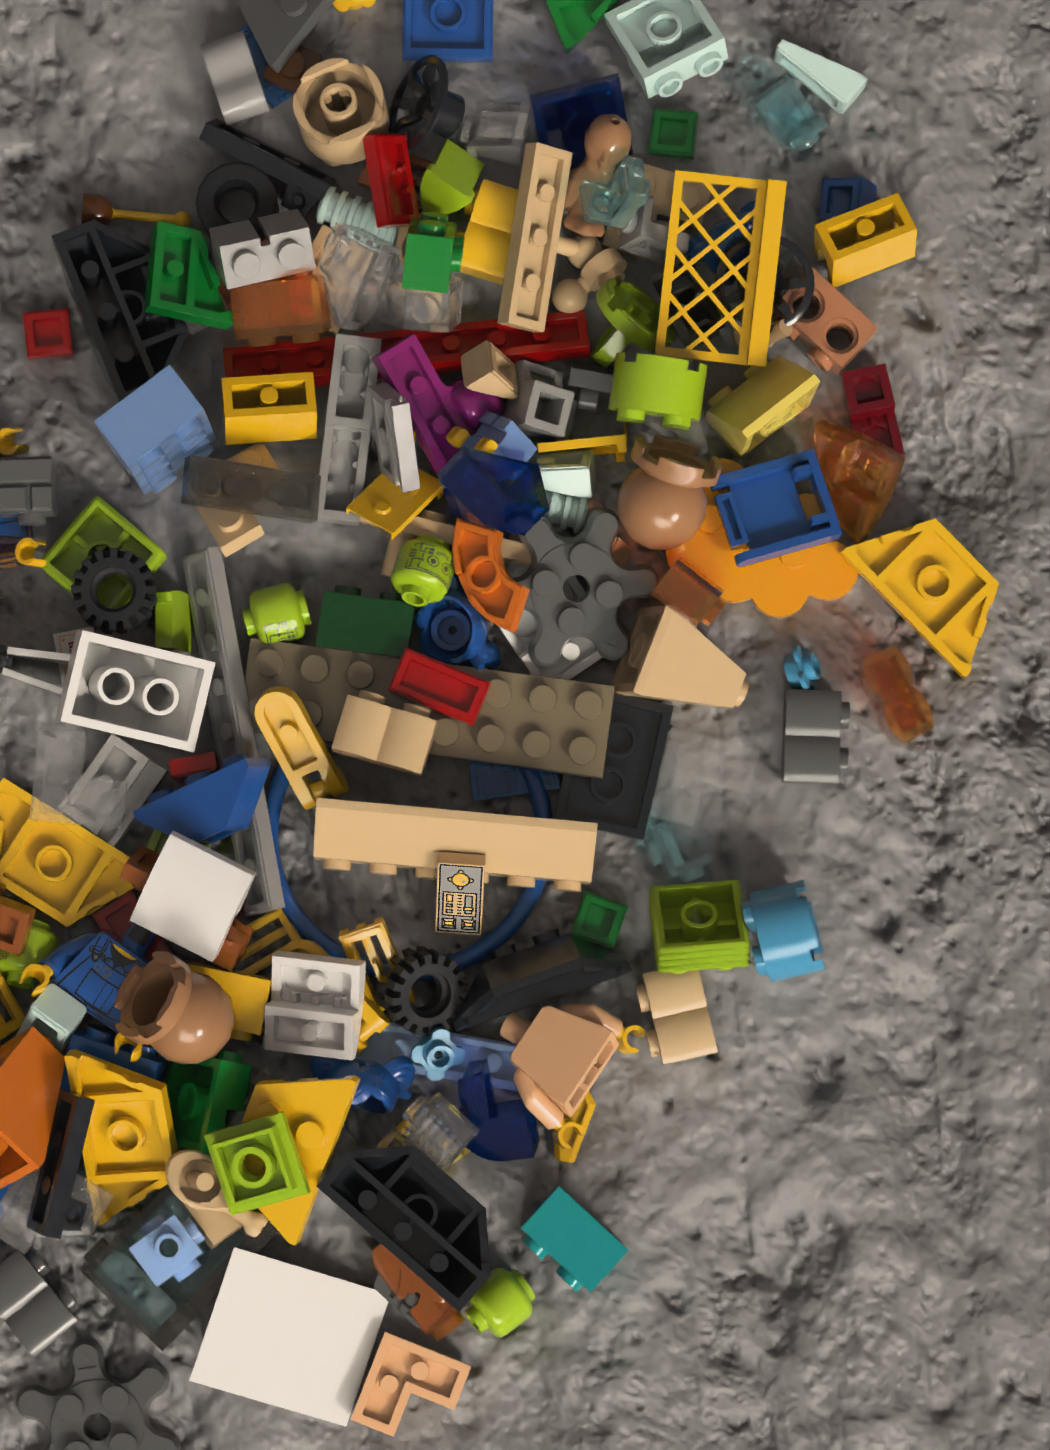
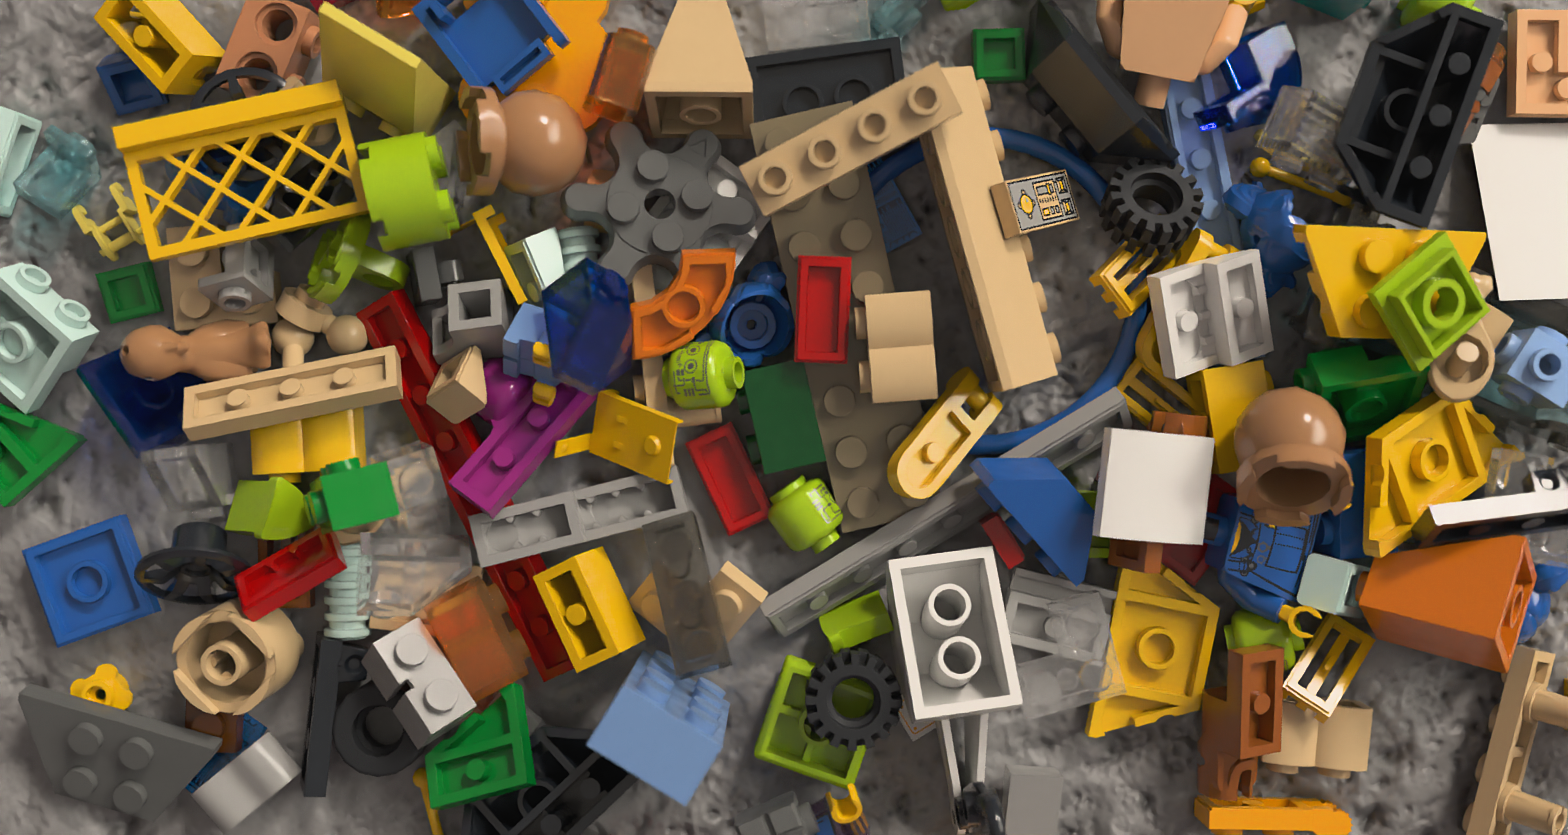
camera: 105 degrees left, 5 degrees up
(331, 564) = (729, 478): none -> red tile
(394, 437) = (569, 460): light grey plate -> none
(426, 1048) = (1210, 166): dark azure plate -> none
(561, 750) = (851, 139): none -> tan plate
(619, 199) = (208, 313): clear light blue bracket -> none
(737, 153) = (125, 214): none -> light yellow piece

